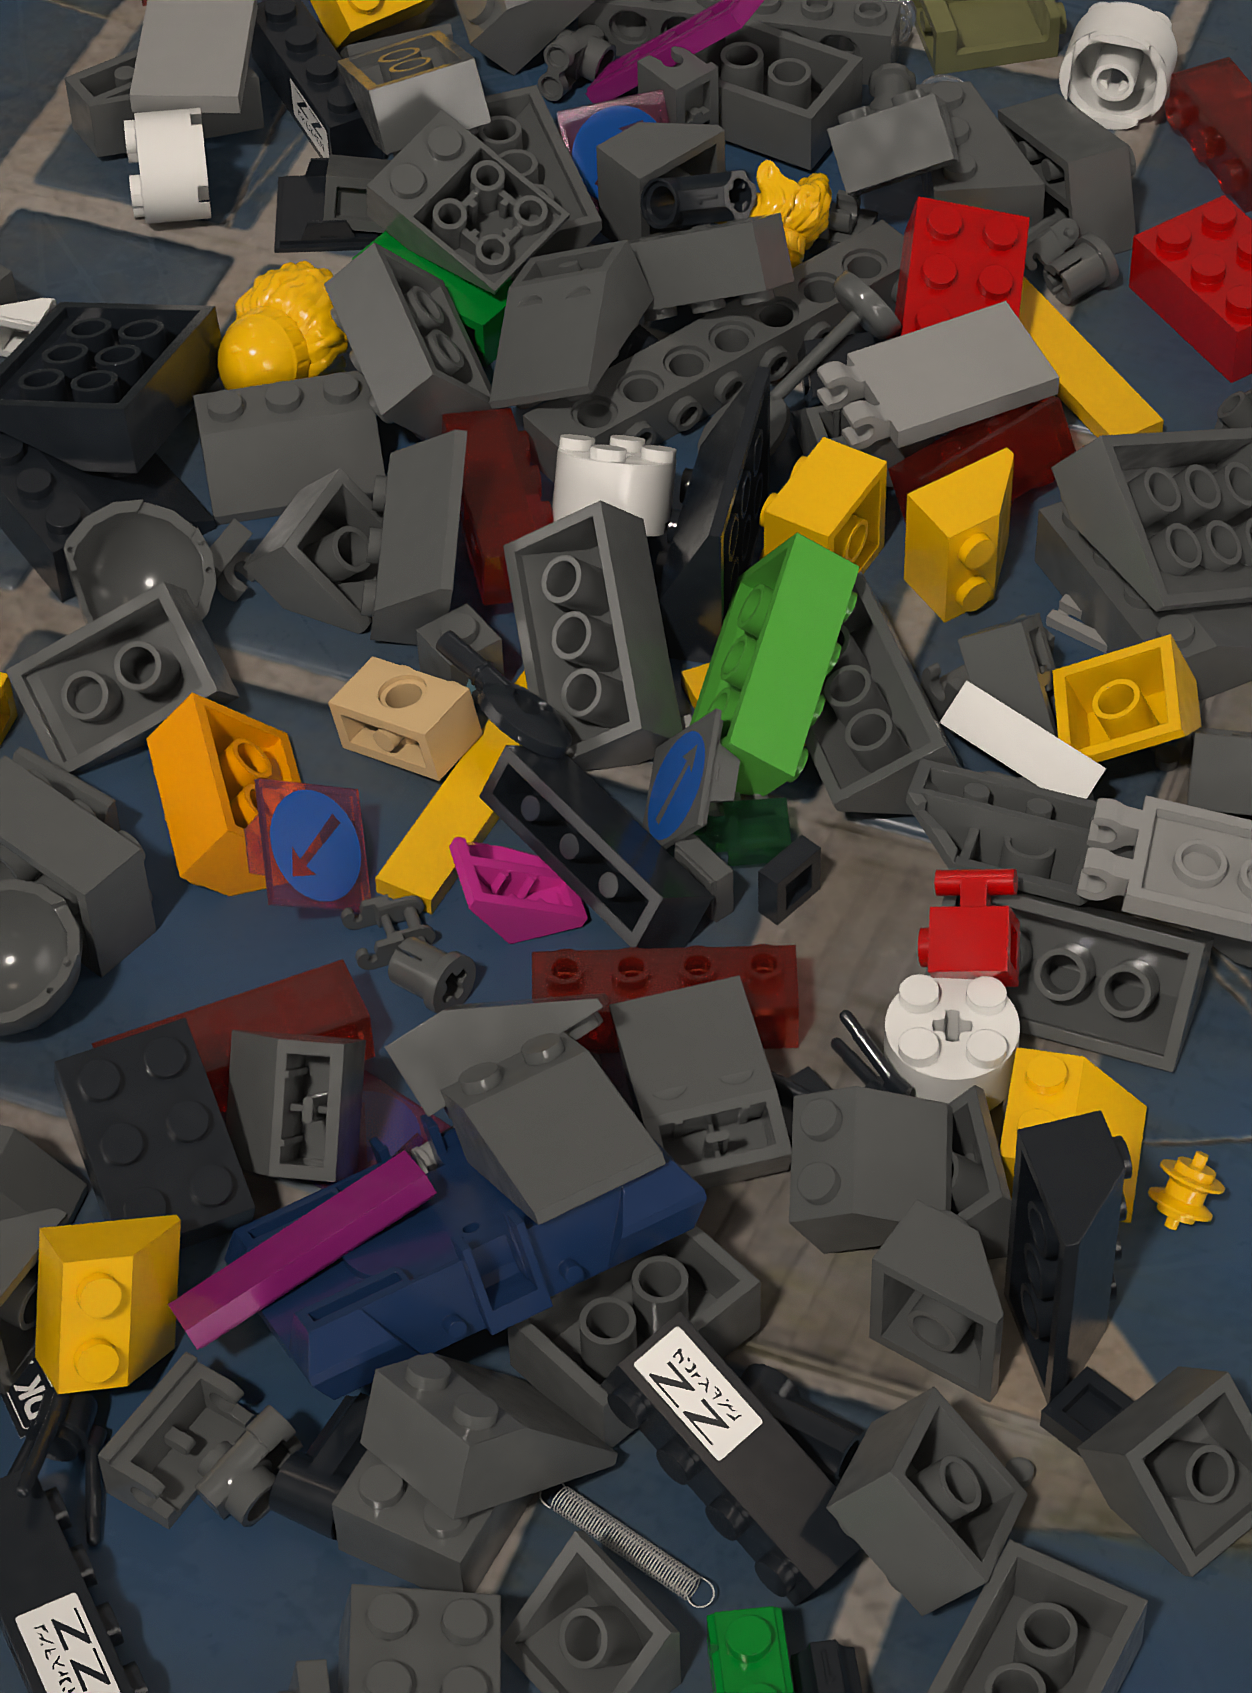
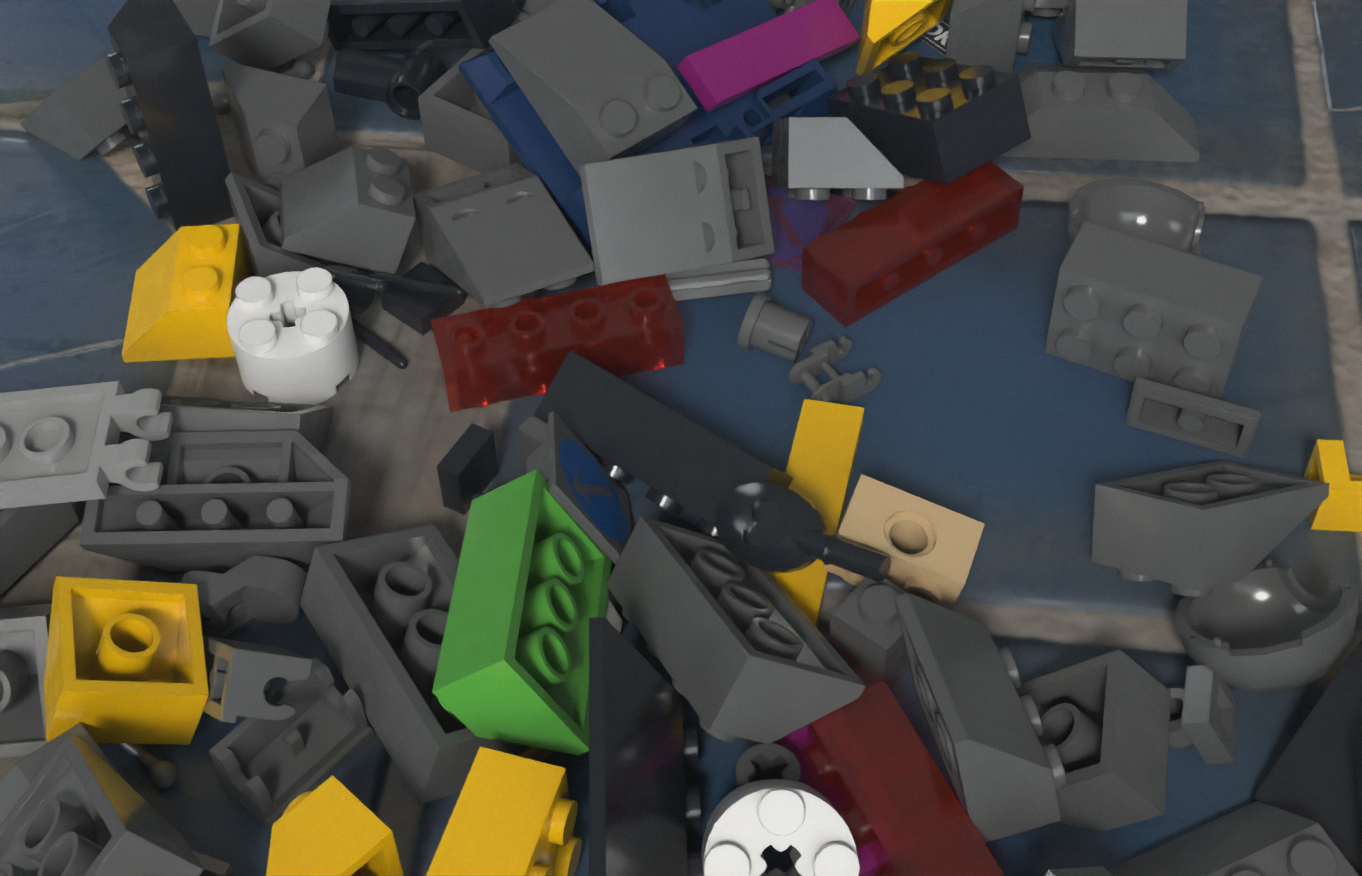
camera: 165 degrees right, 0 degrees up
(206, 784) = (1028, 443): light orange slope -> none
(308, 845) = (924, 373): piece -> none
(515, 891) = (744, 405): dark pink slope -> none
(974, 936) = (273, 368): red brick -> none
(1020, 743) = (241, 602): white sticker -> none
(1186, 1190) = (86, 275): yellow wheel -> none

